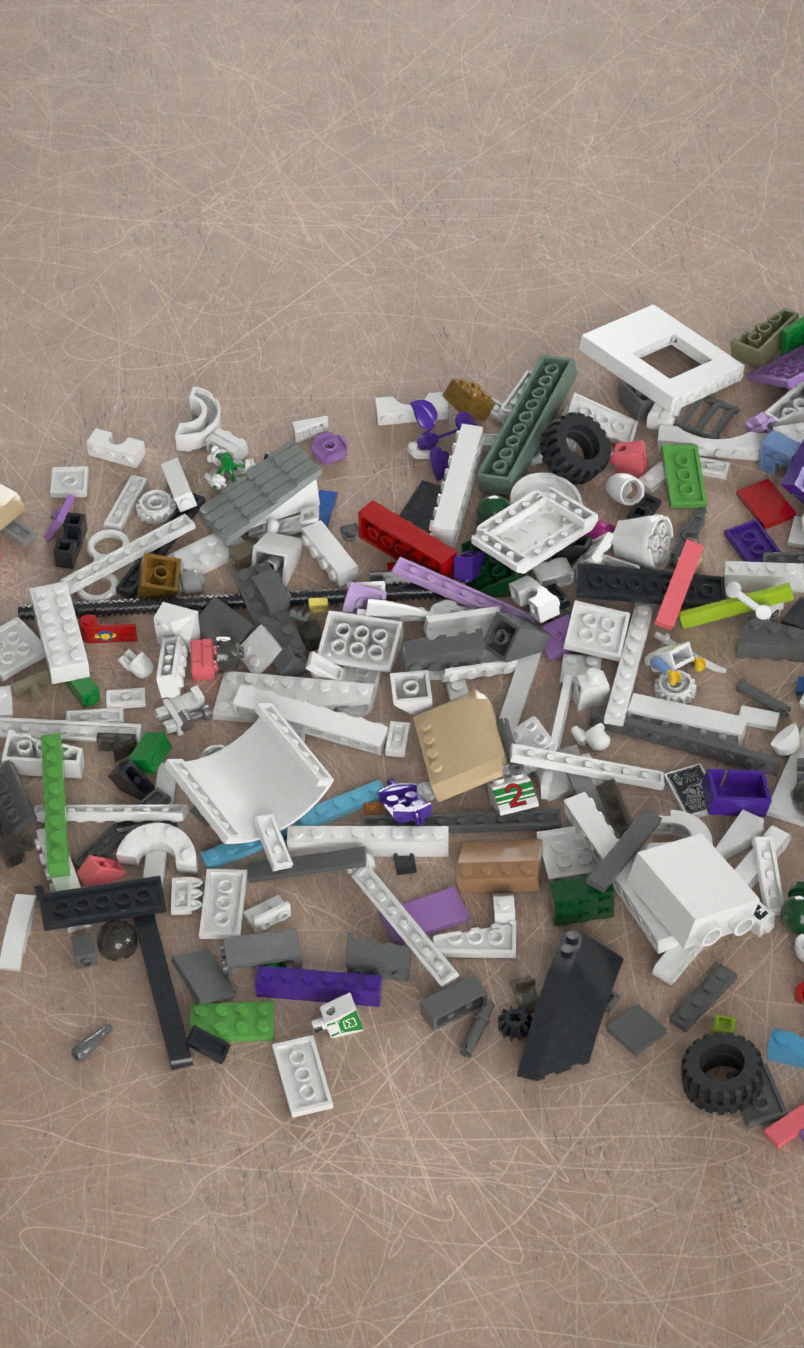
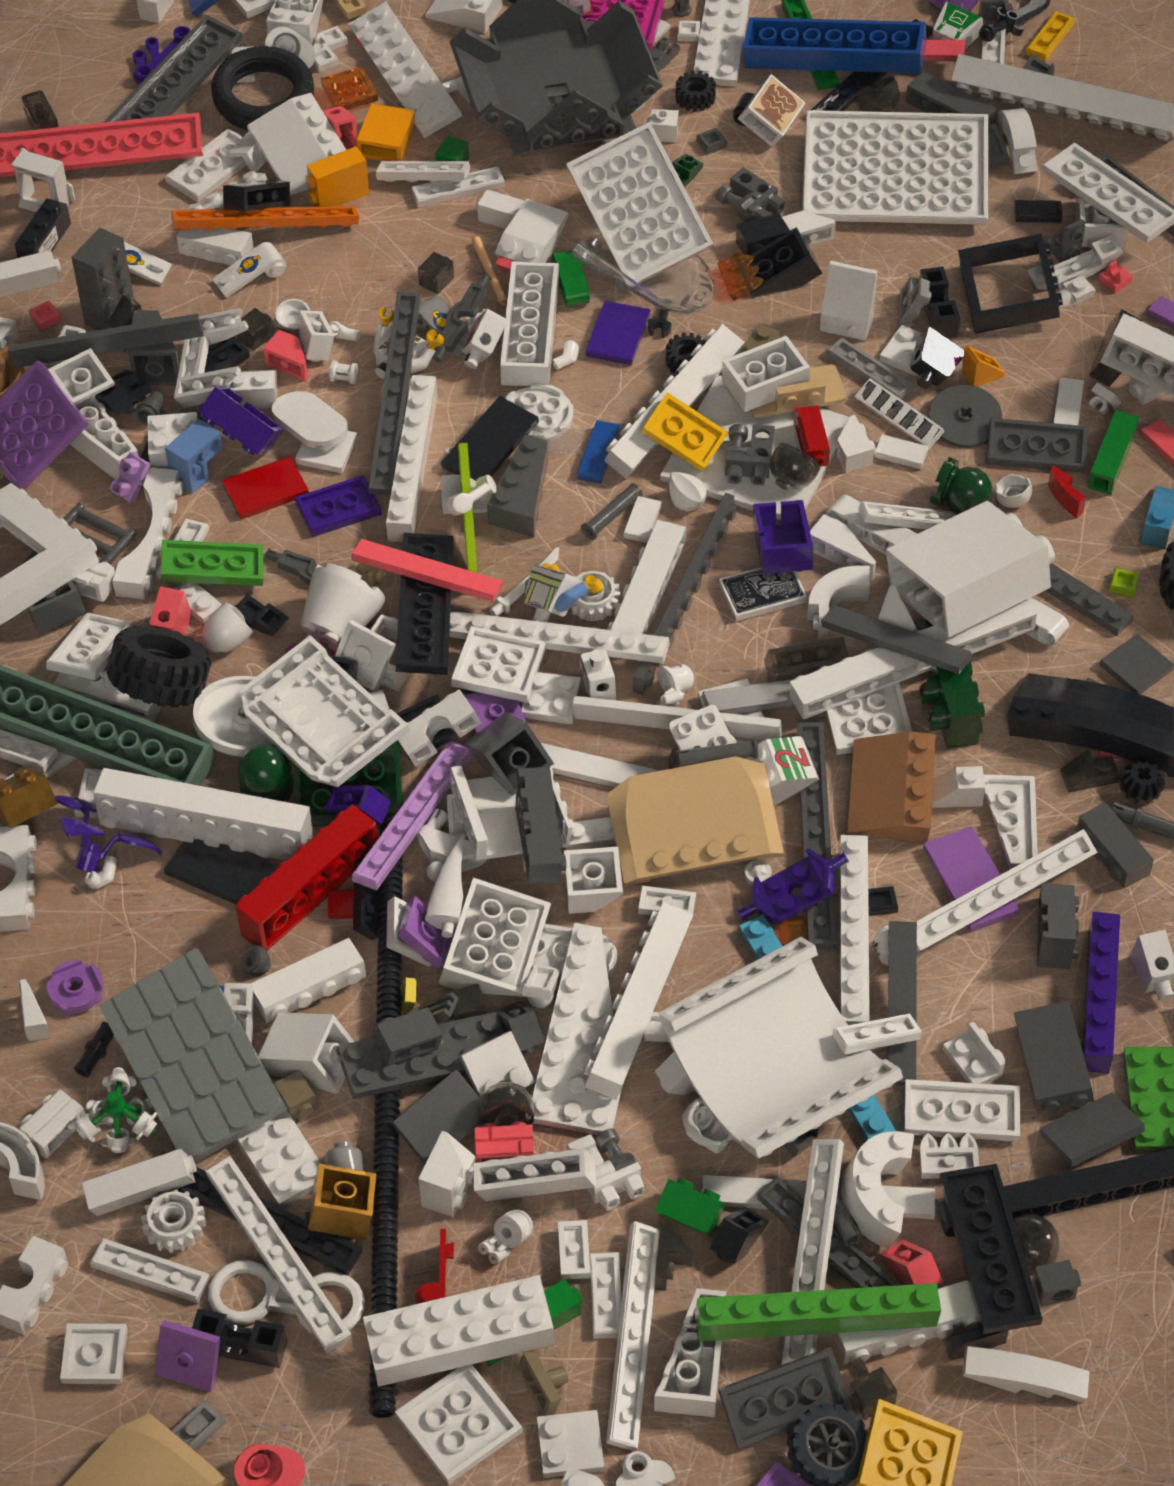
camera: 90 degrees left, 5 degrees up
(586, 766) = (743, 682): white tile -> none

